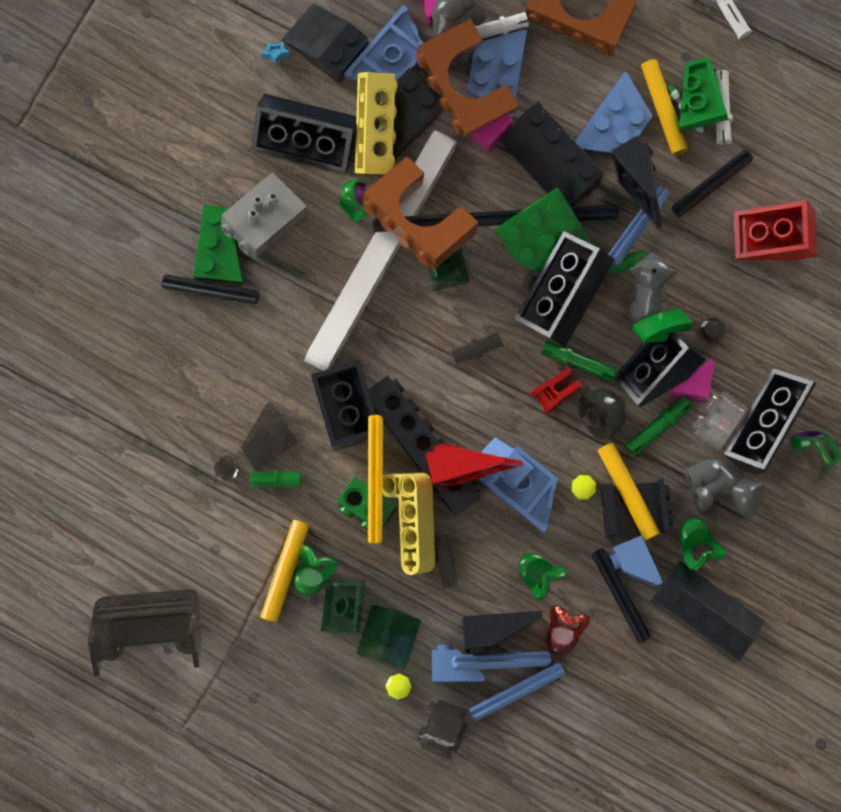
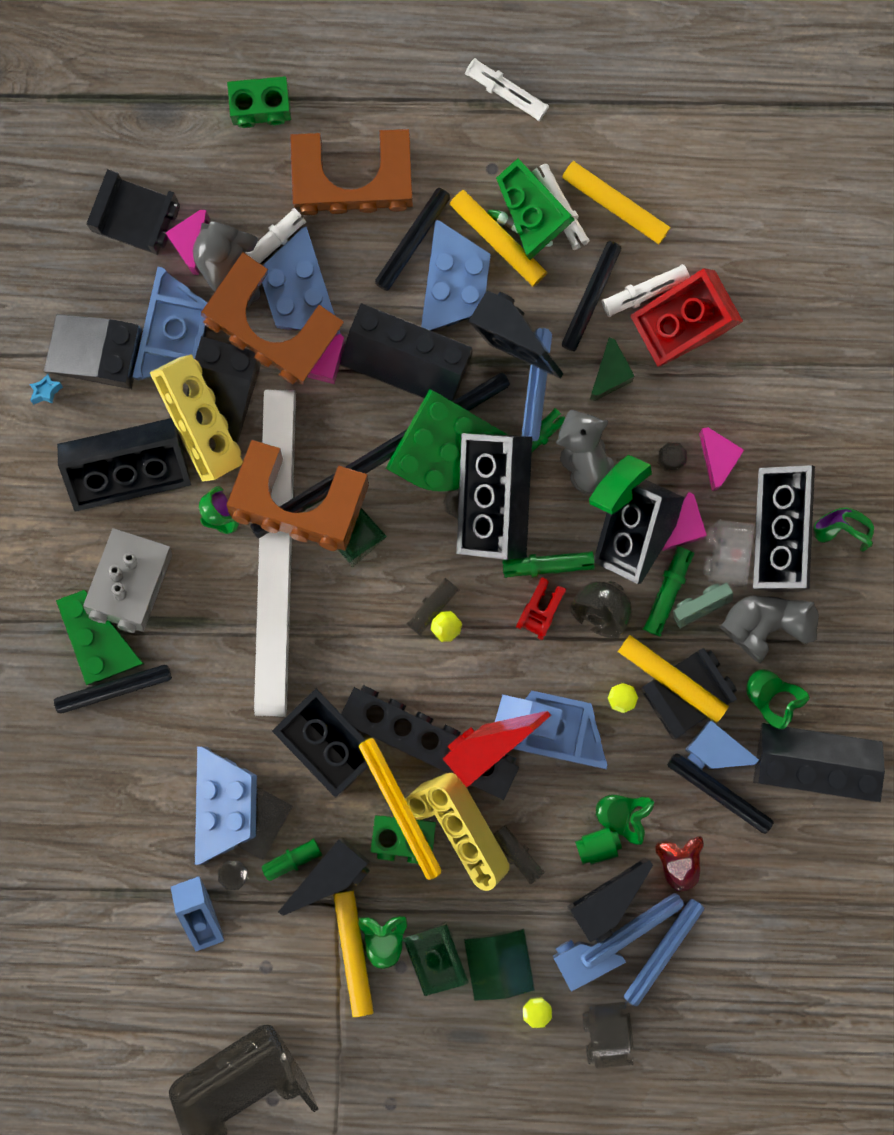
camera: 25 degrees left, 5 degrees up
(185, 482) = (196, 913): none -> medium blue slope
(245, 414) = (222, 805): none -> medium blue wing
(301, 503) = (333, 873): none -> black slope
(479, 367) = (446, 626): none -> neon yellow tile
(508, 587) = (598, 846): none -> green brick
(600, 77) = (412, 239): none -> black axle
(679, 449) = (712, 599): none -> sand green plate
(699, 245) = (612, 373): none -> dark green slope
(734, 197) = (634, 295): none -> white pin
(749, 346) = (719, 456): none -> dark pink slope
(765, 125) = (616, 202): none -> yellow piece

